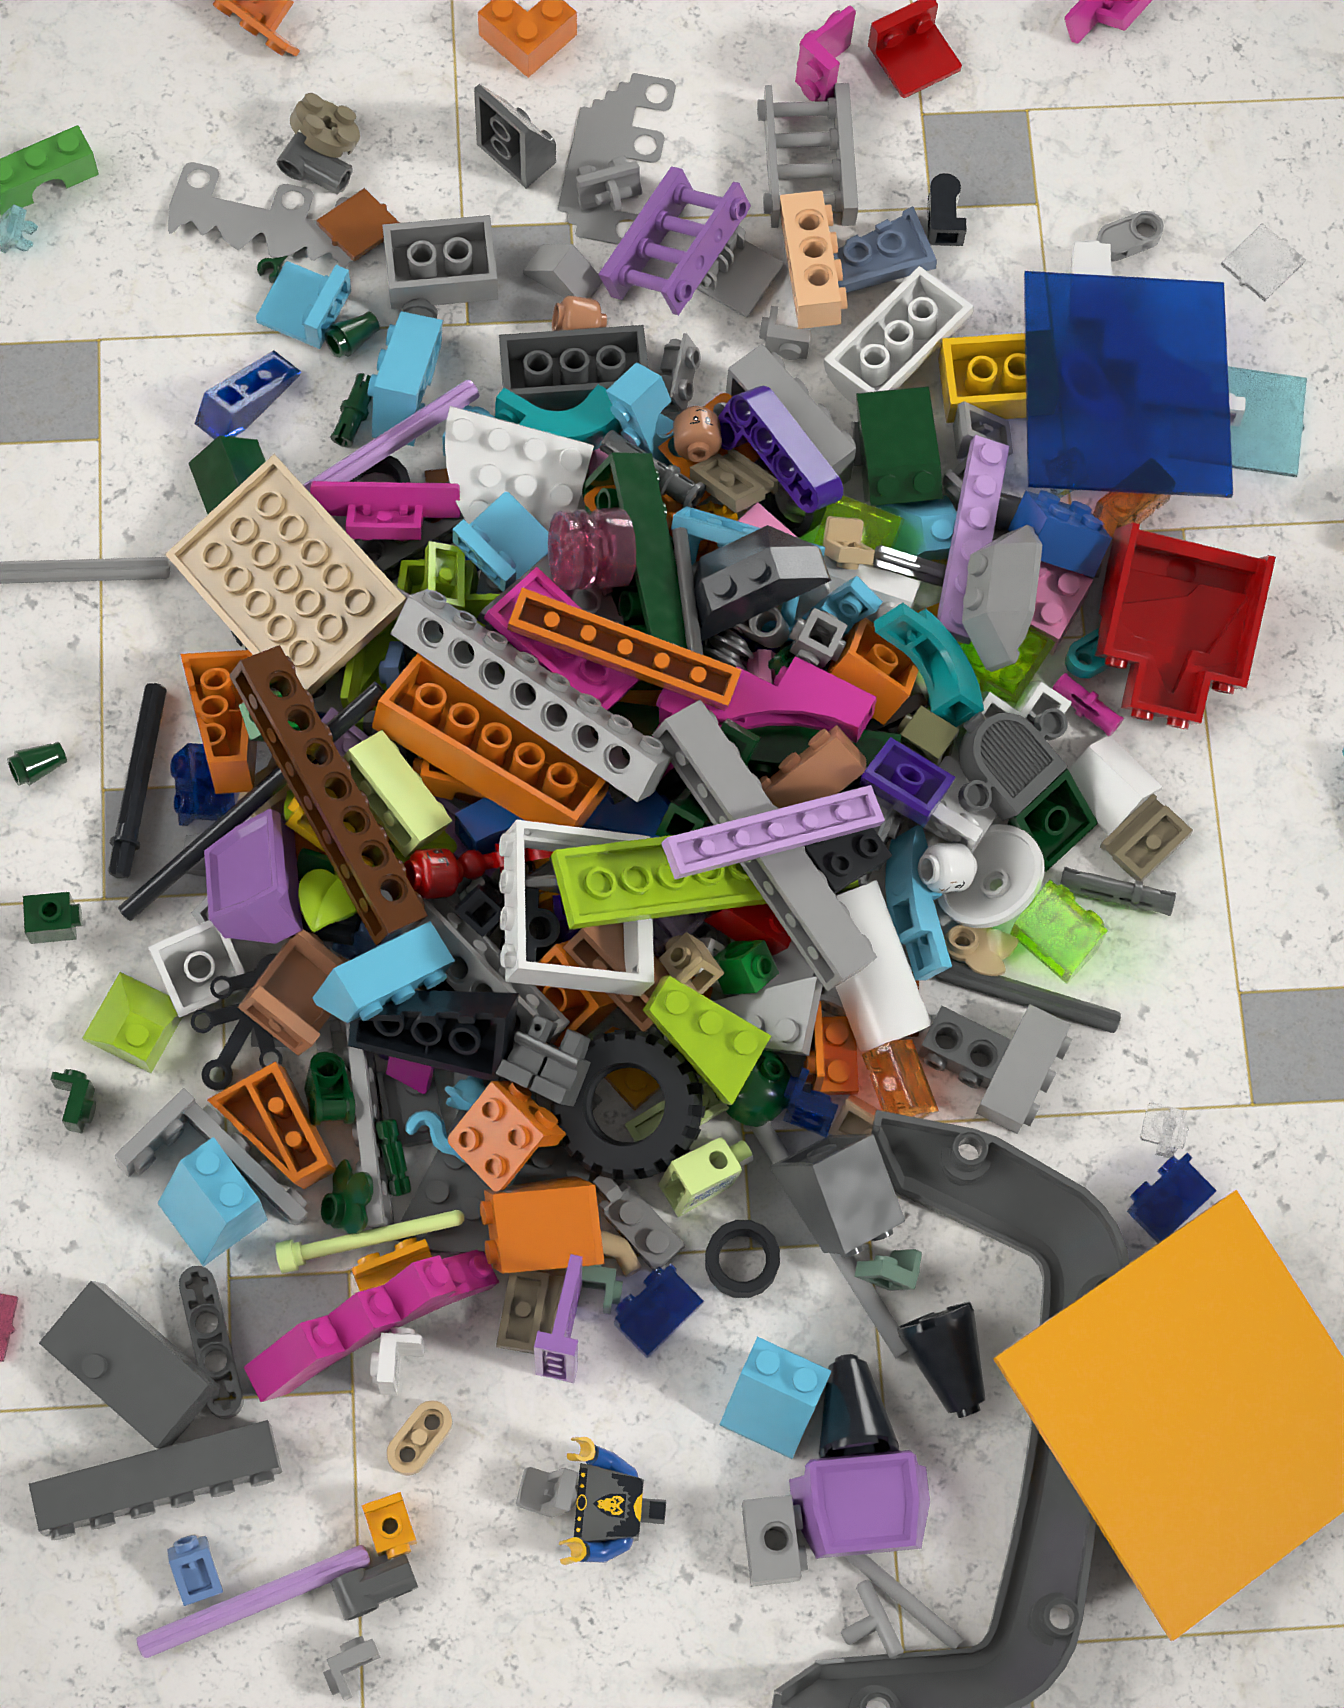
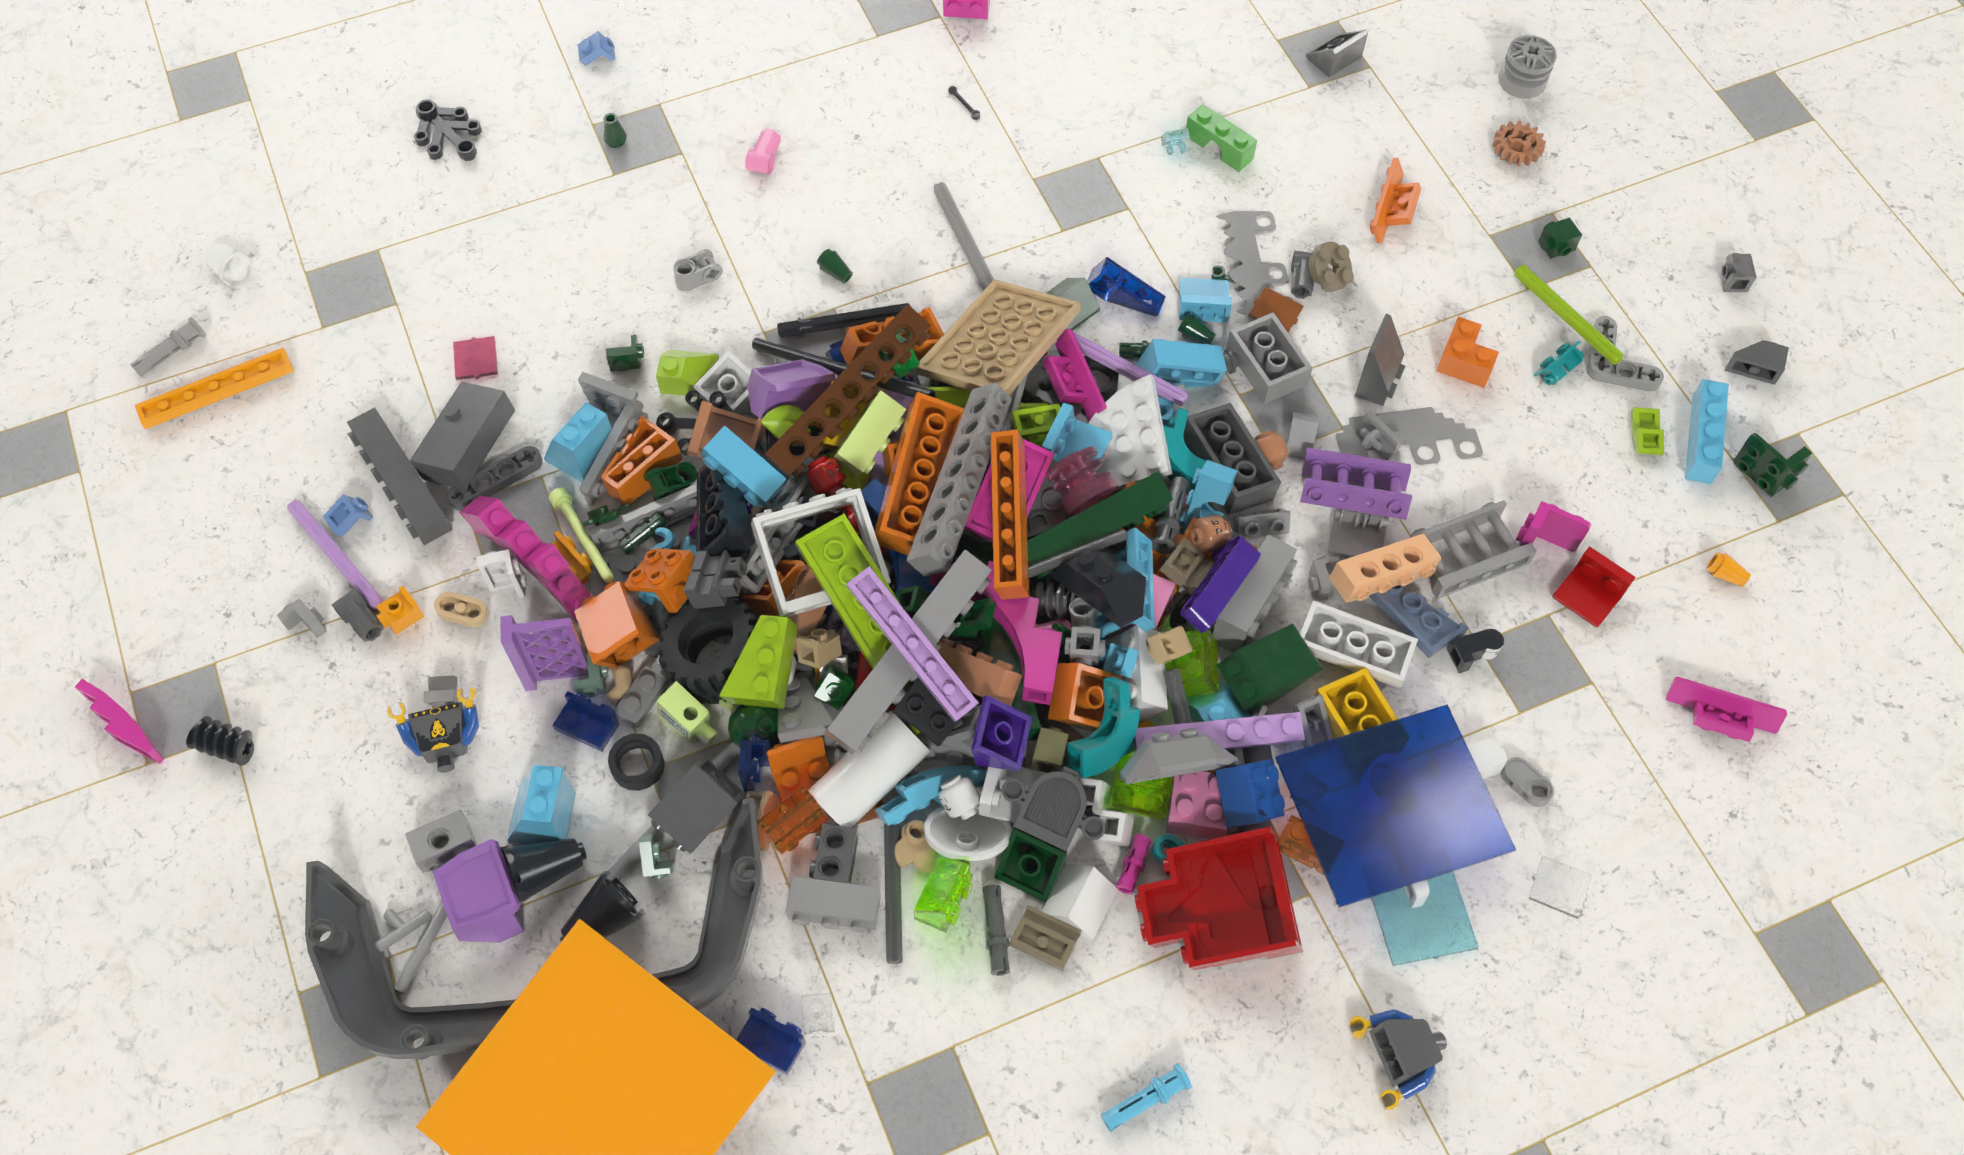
camera: 75 degrees right, 10 degrees down
(51, 917) = (735, 303): dark green brick -> none

